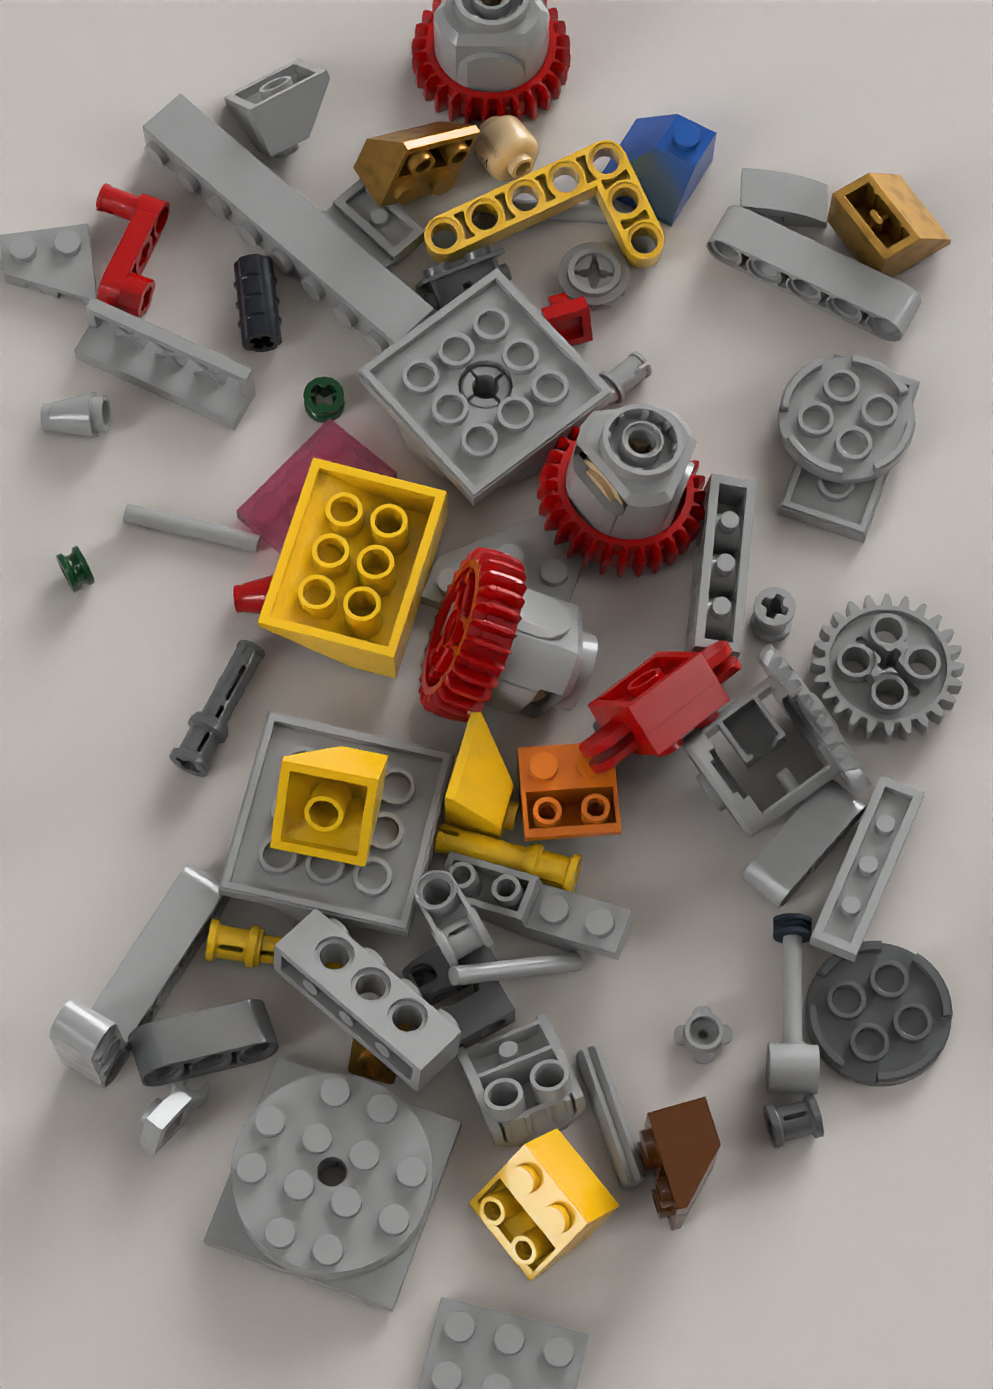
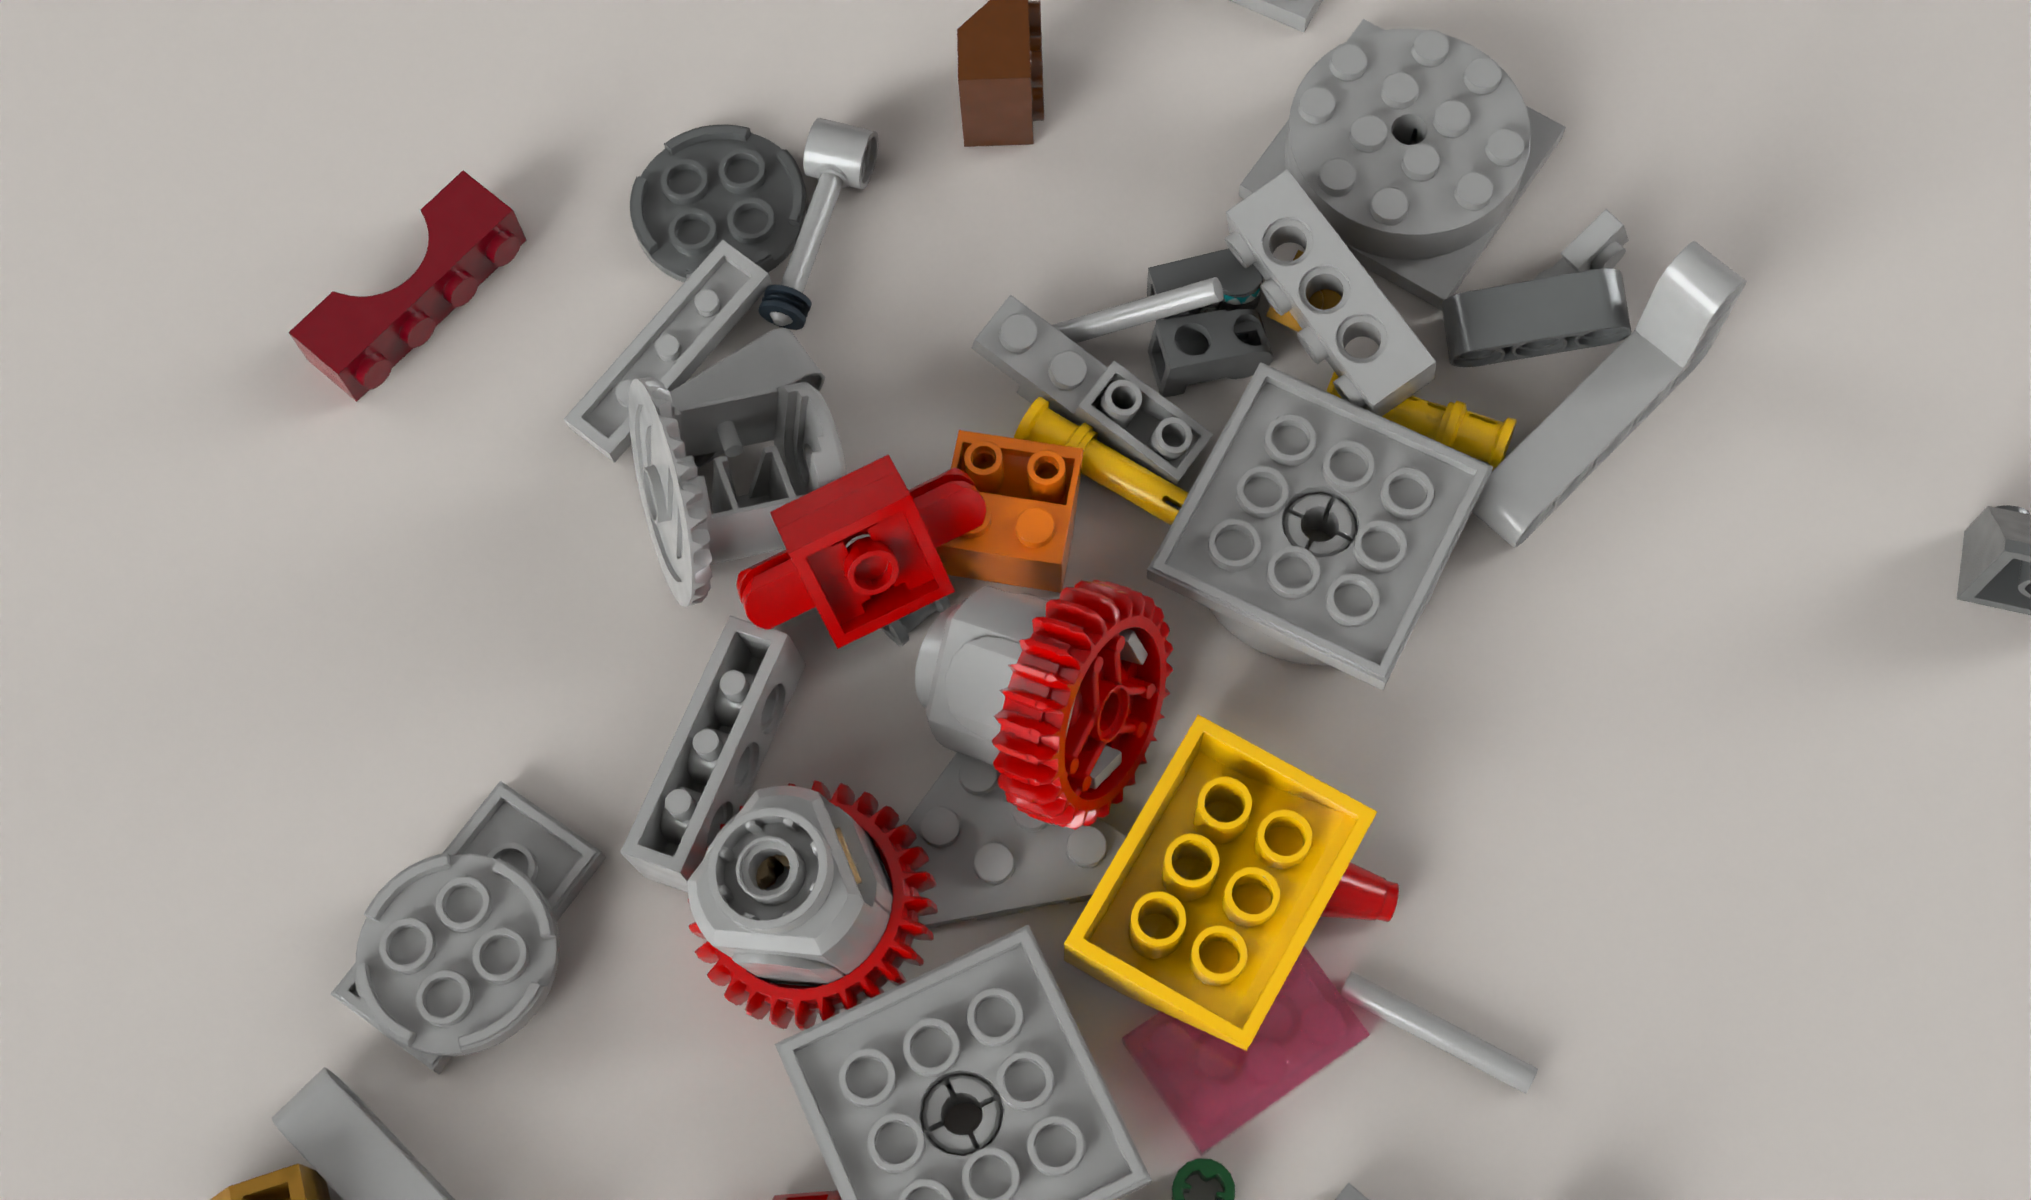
camera: 160 degrees left, 0 degrees up
(75, 569) = (1620, 998): dark green bush -> none
(207, 729) = (1460, 723): dark grey pin -> none
(329, 803) = (1323, 514): yellow slope -> none
(454, 921) = (1201, 348): light grey piece -> none
(480, 785) = (1124, 528): yellow slope -> none
(522, 1083) = (1159, 208): light grey slope -> none
(543, 1203) = (1165, 78): yellow slope -> none
(610, 1117) = (1064, 161): light grey axle -> none
(626, 375) = (752, 1108): light grey pin -> none
(703, 1020) = (925, 207): light grey plate -> none
(769, 601) = (668, 675): light grey bush -> none
(793, 1120) = (860, 103): dark grey bush -> none
(916, 643) = (493, 616): light grey gear -> none

